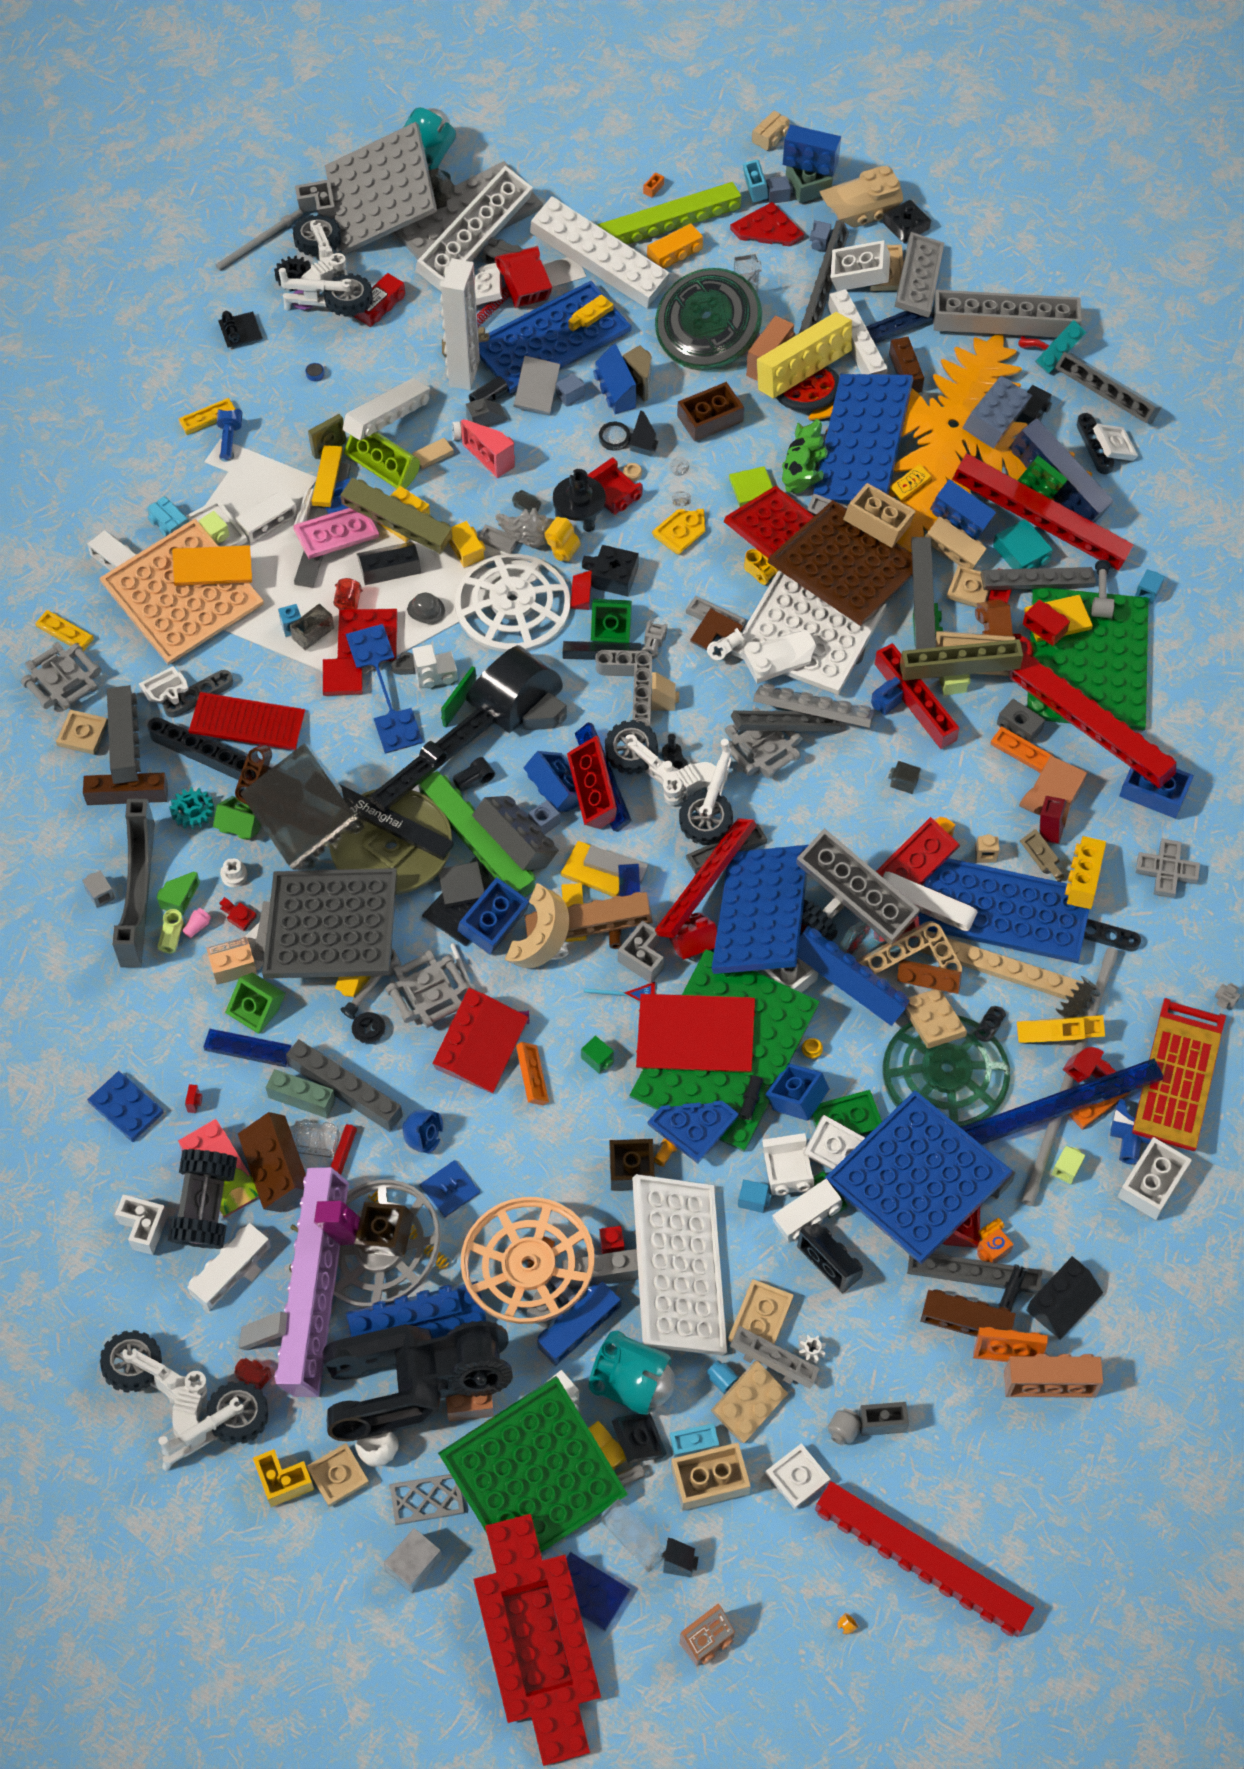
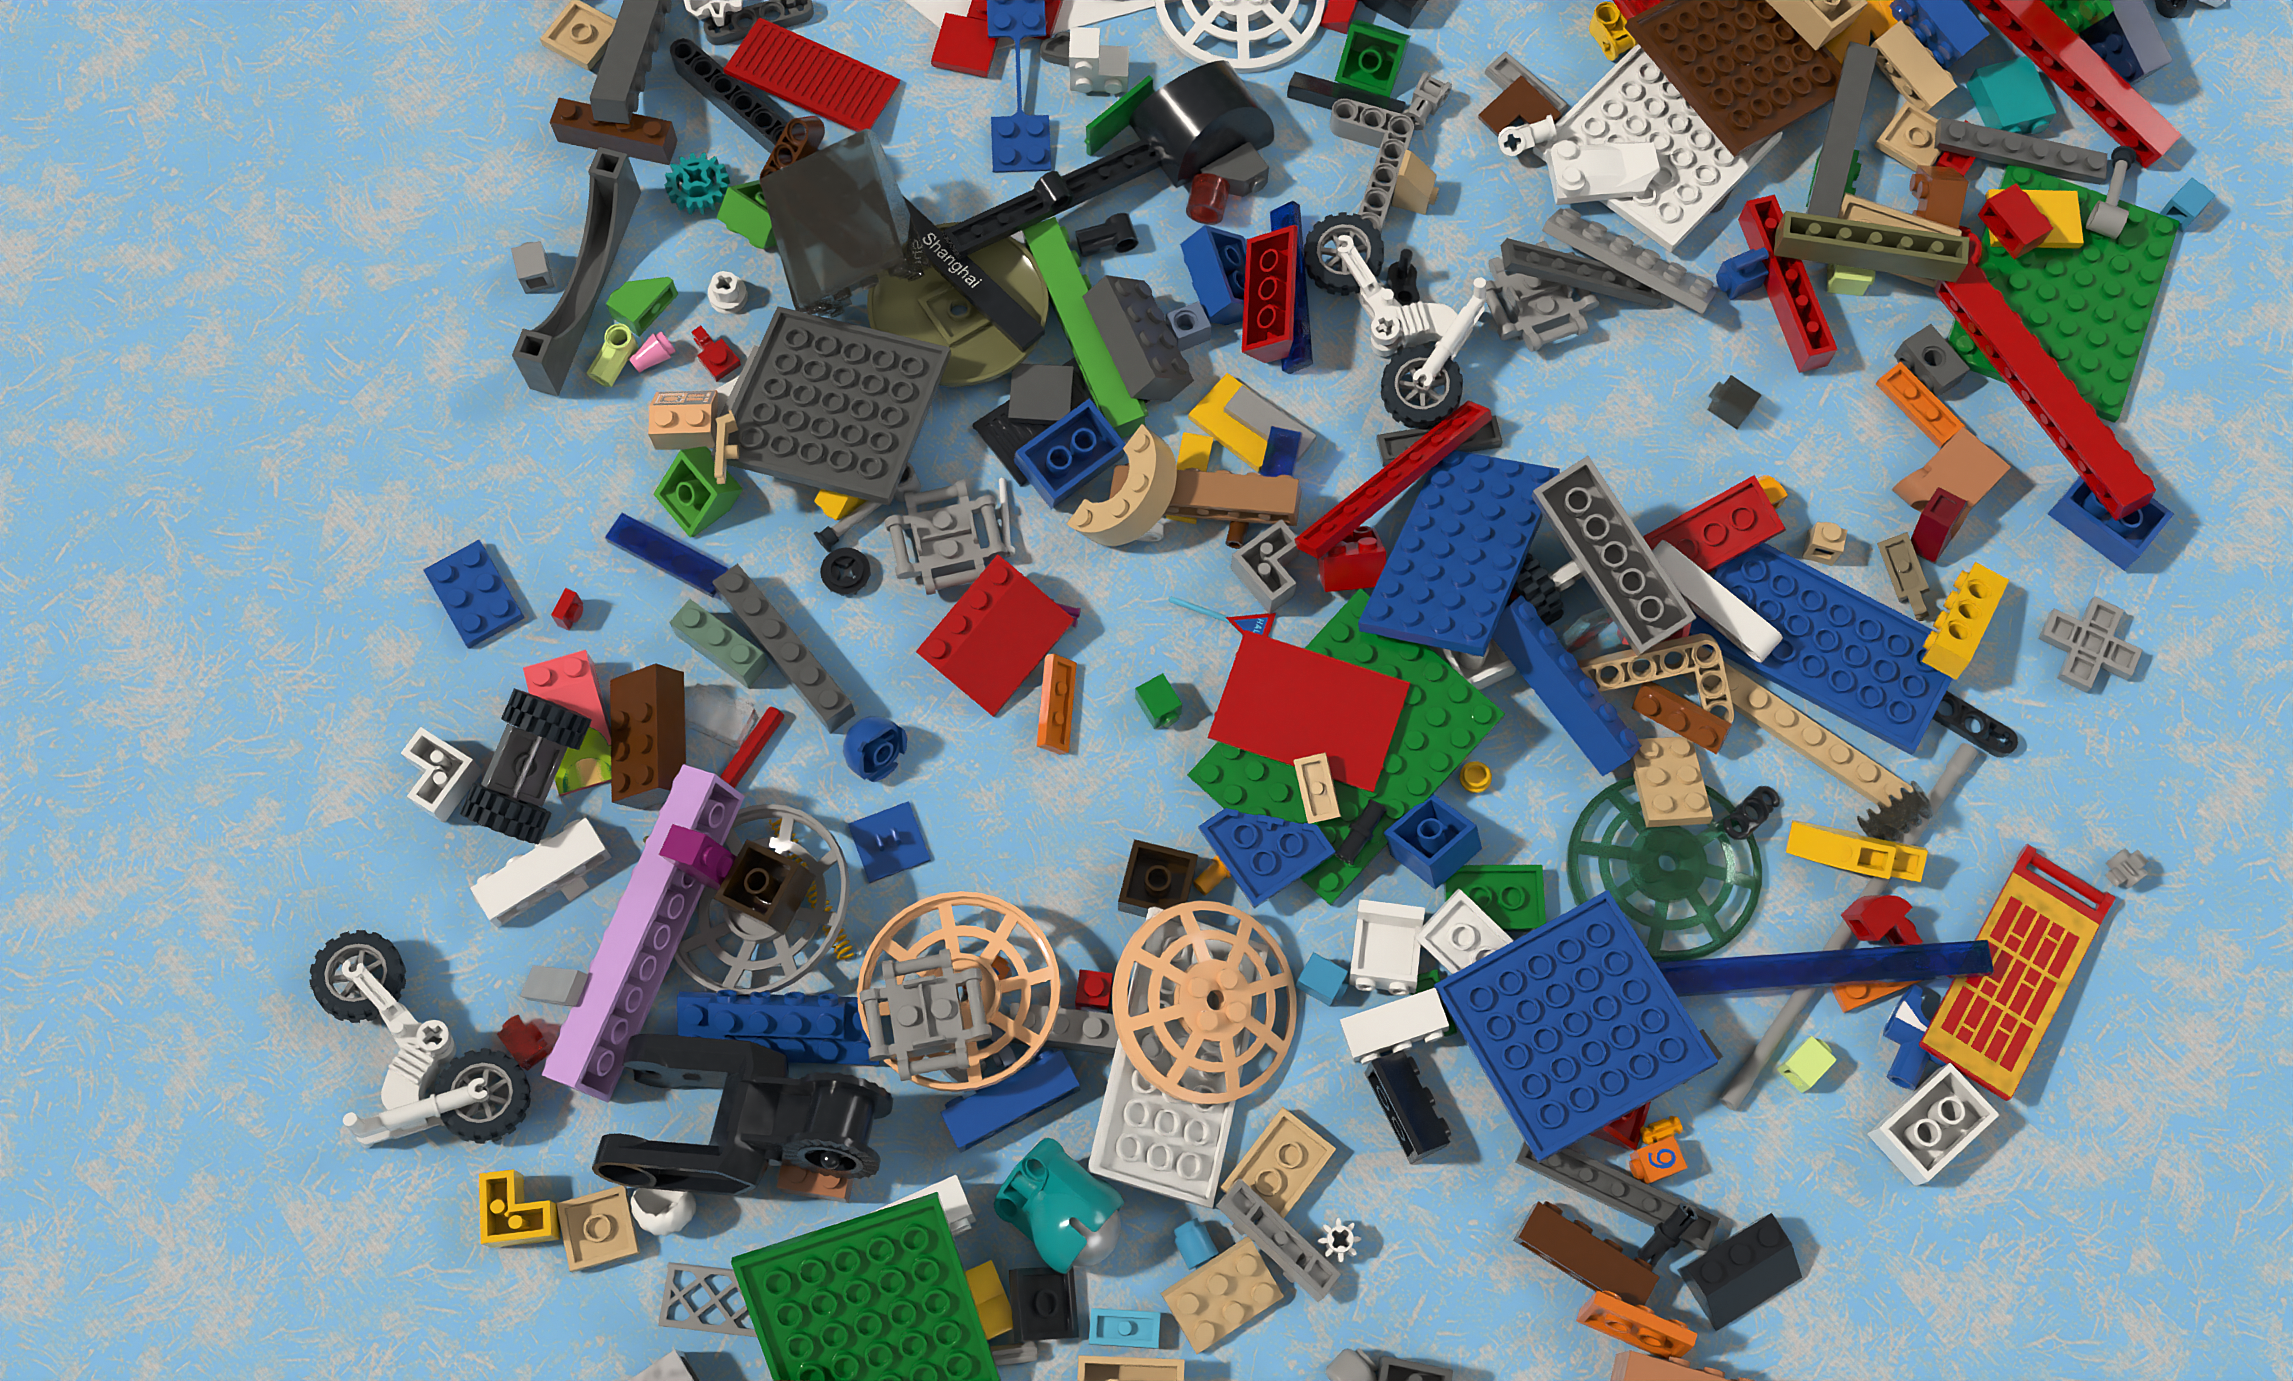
camera: 15 degrees right, 10 degrees up
(267, 952) = (725, 425): none -> tan piece
(513, 1277) = (925, 1015): none -> light grey brick
(532, 735) = (1207, 199): none -> clear red piece
(680, 1231) = (1192, 1007): none -> light nougat dish
(715, 1077) = (1317, 788): none -> tan plate

